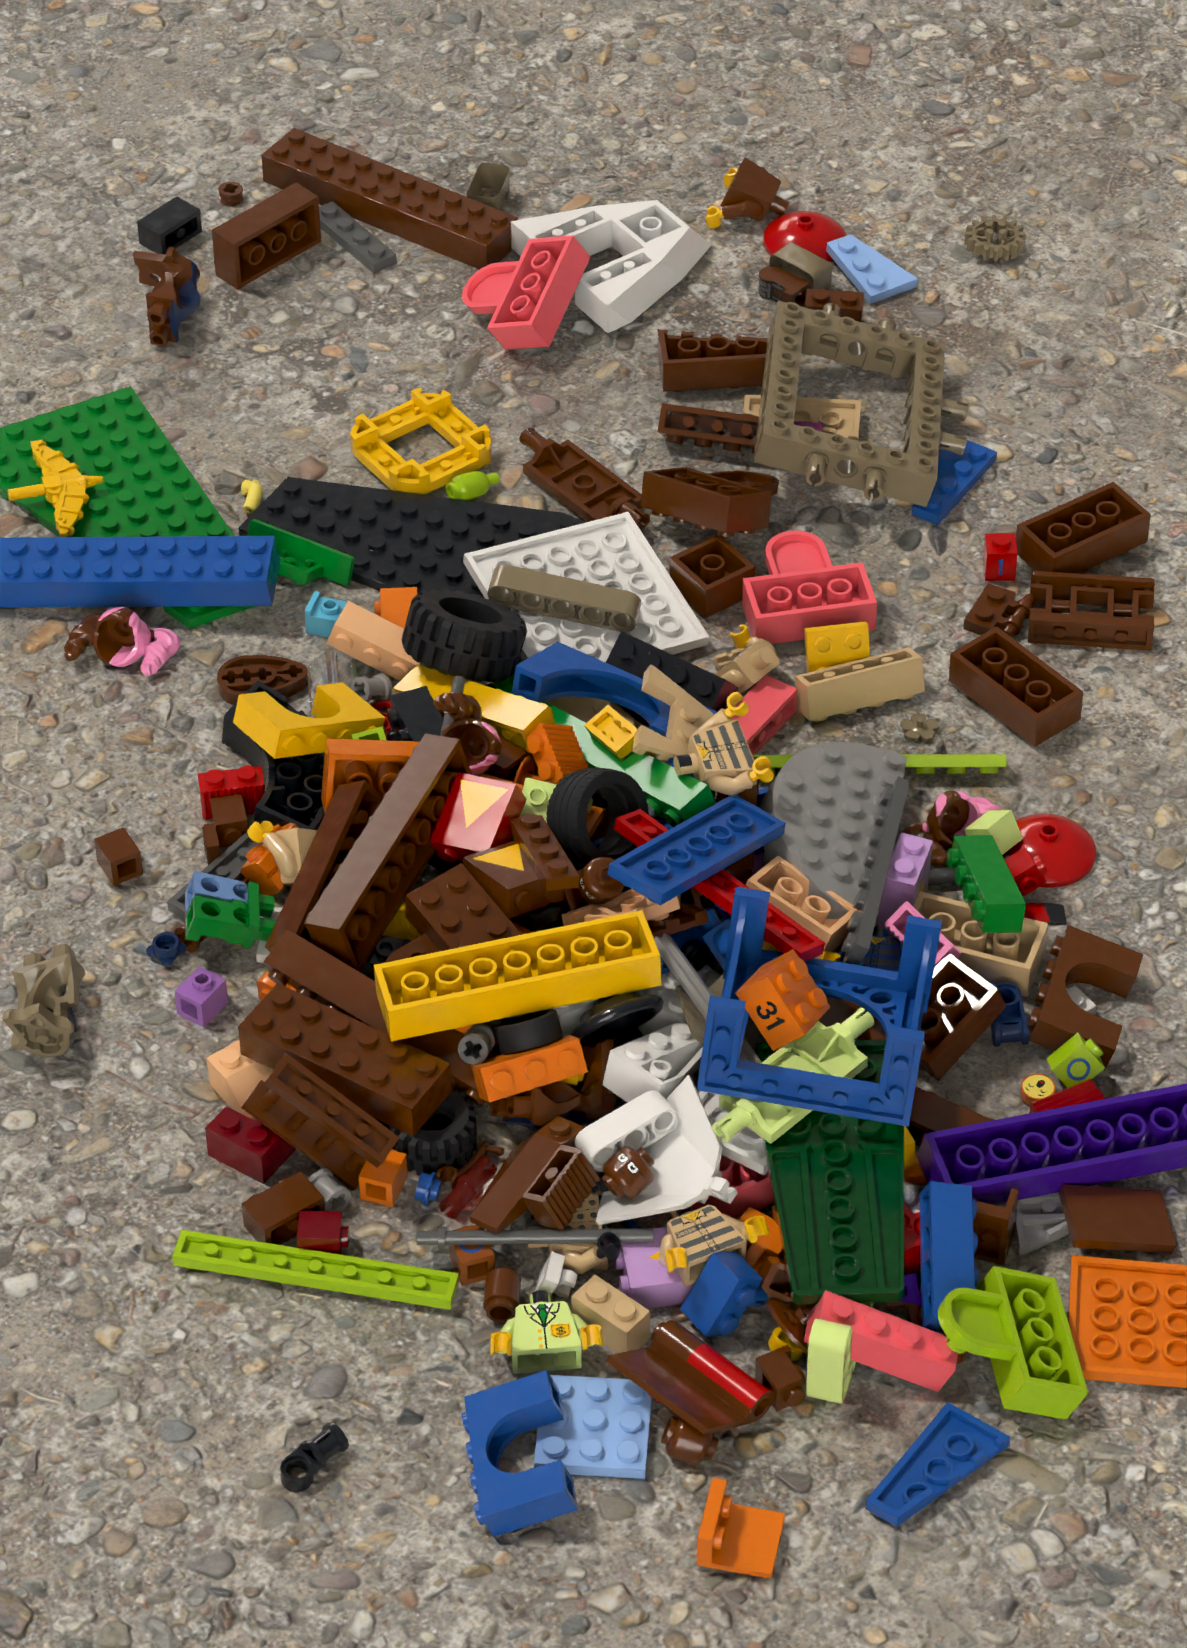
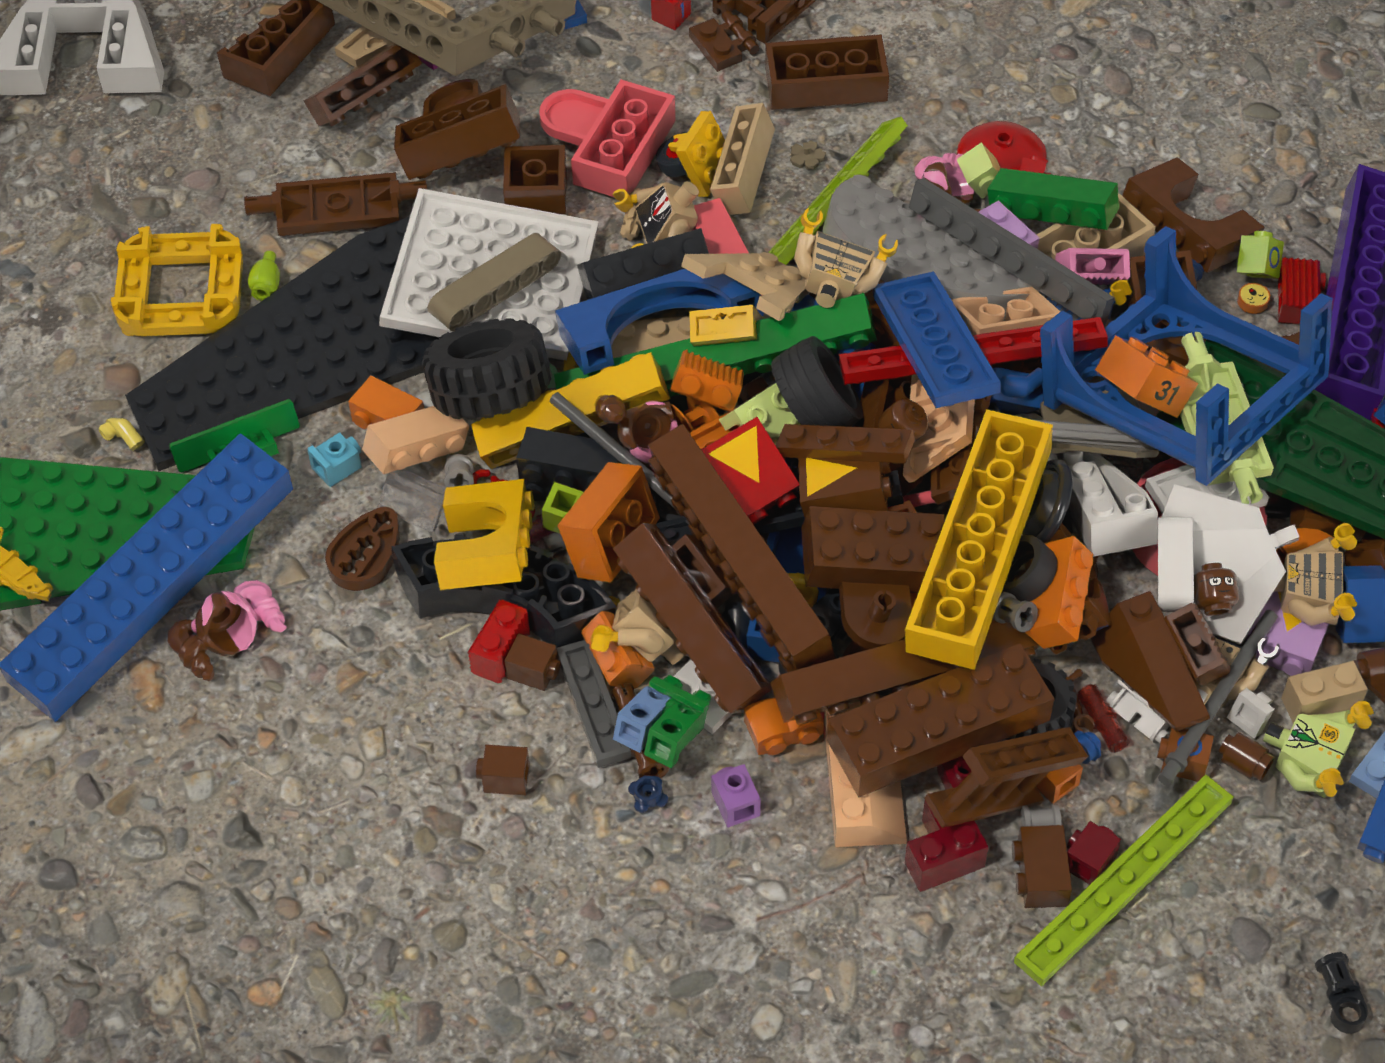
camera: 55 degrees left, 10 degrees up
(43, 988) = (637, 906): dark tan hips -> none
(211, 842) = (553, 691): reddish brown tile -> none
(528, 293) = (80, 104): coral brick -> none

